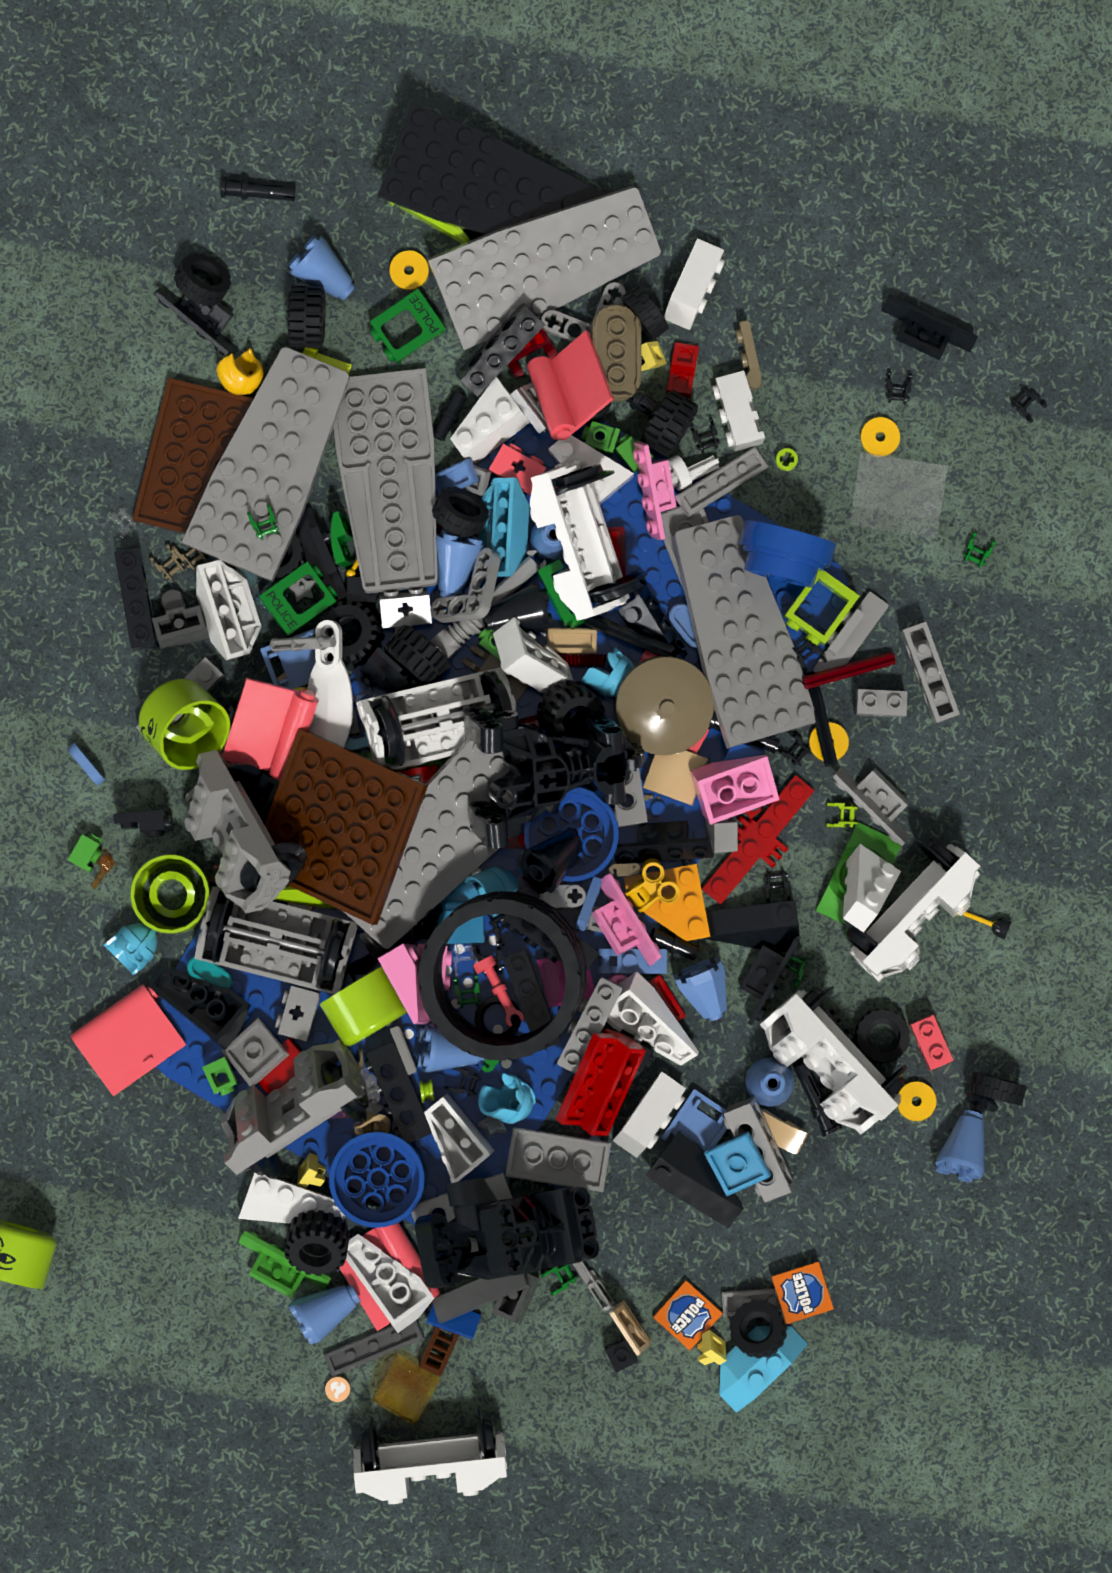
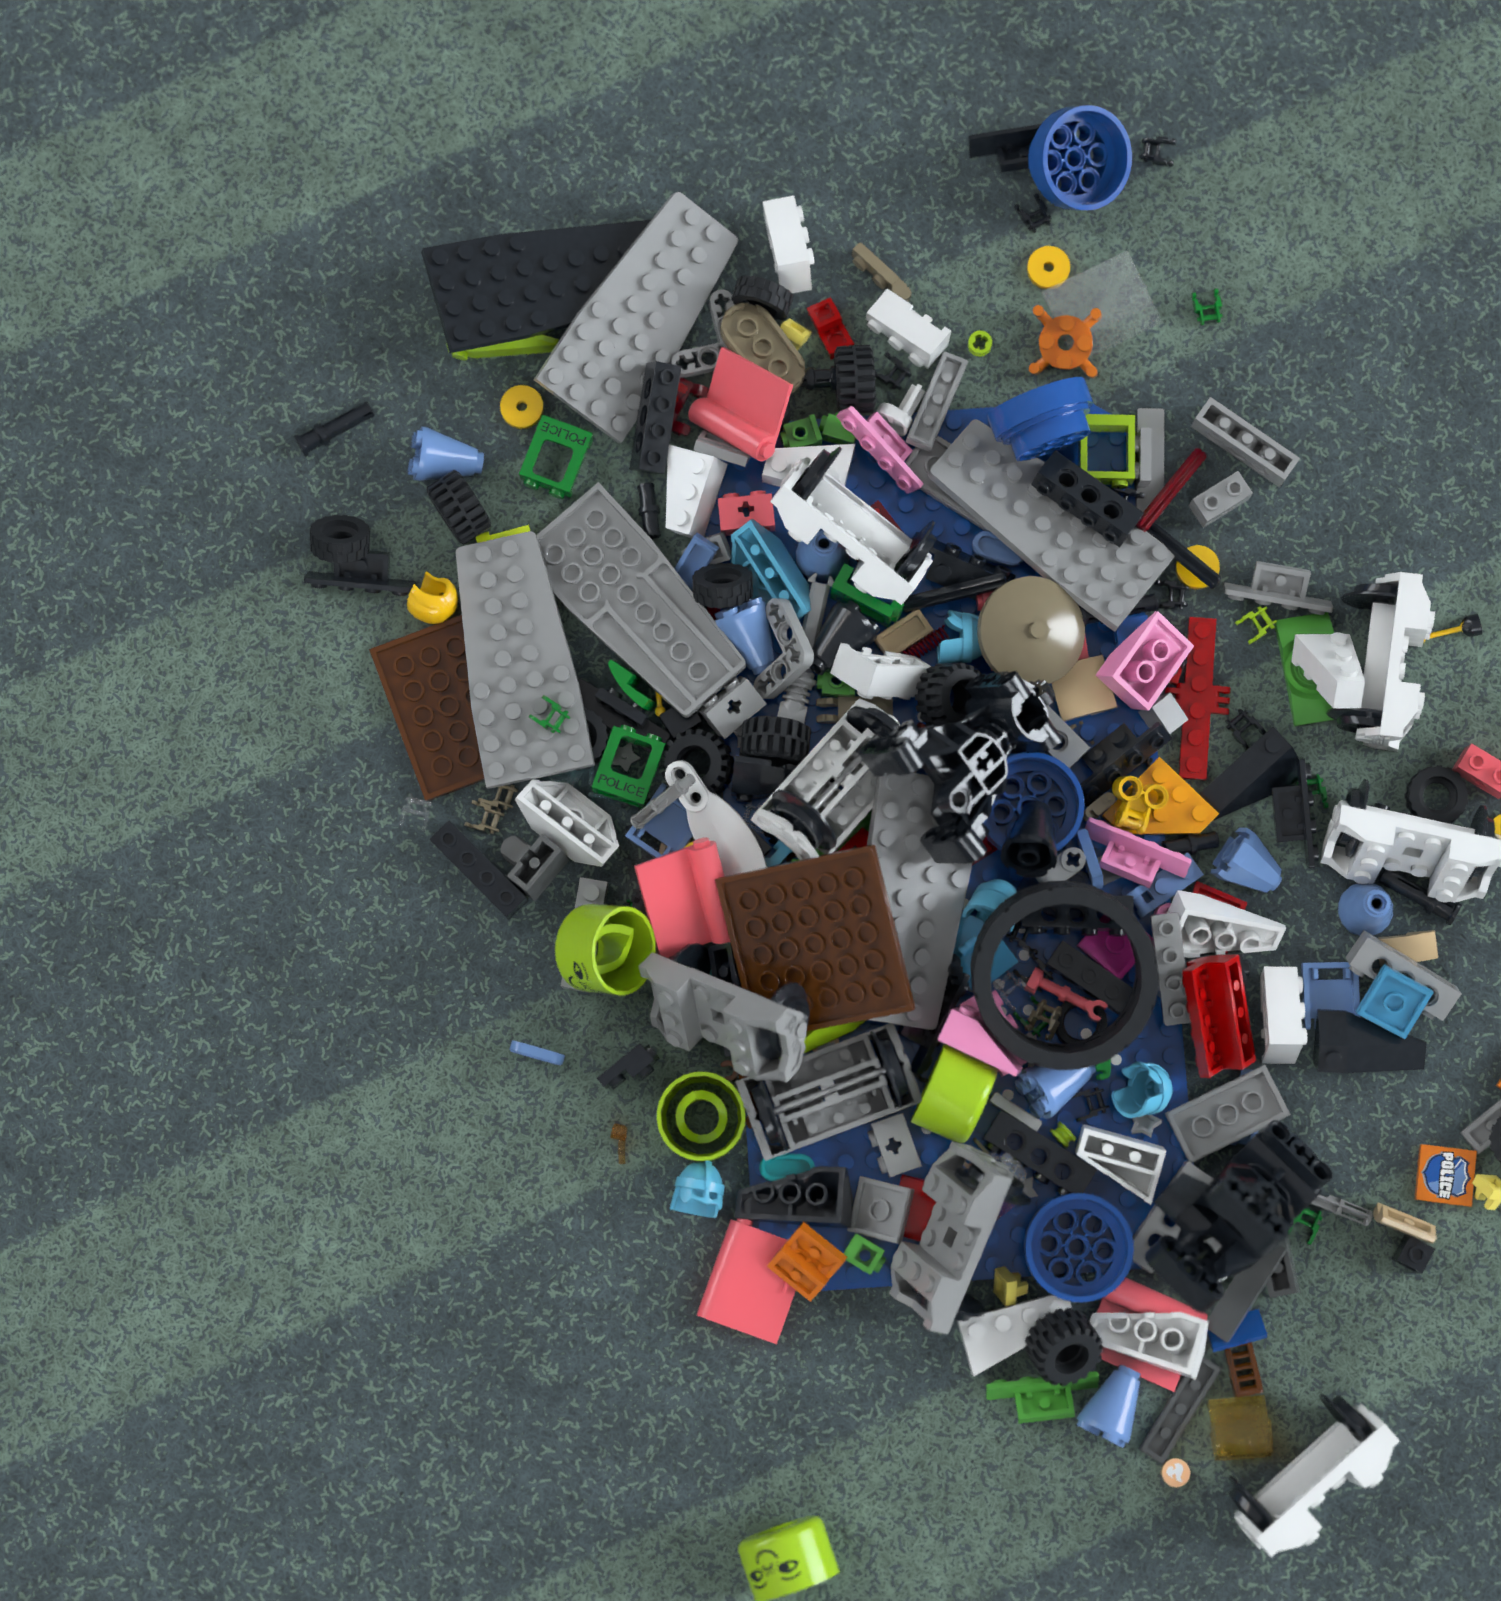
camera: 30 degrees left, 5 degrees down
(86, 851) = (593, 1133): bright green brick -> none
(175, 1052) = (807, 1261): none -> orange slope
(374, 1123) = (1040, 1196): tan hat -> none
(467, 990) = (1037, 1015): none -> dark tan piece
(780, 622) = (1084, 486): none -> black brick
(836, 503) = (1056, 328): none -> orange plate
(971, 394) = (1102, 175): none -> blue wheel

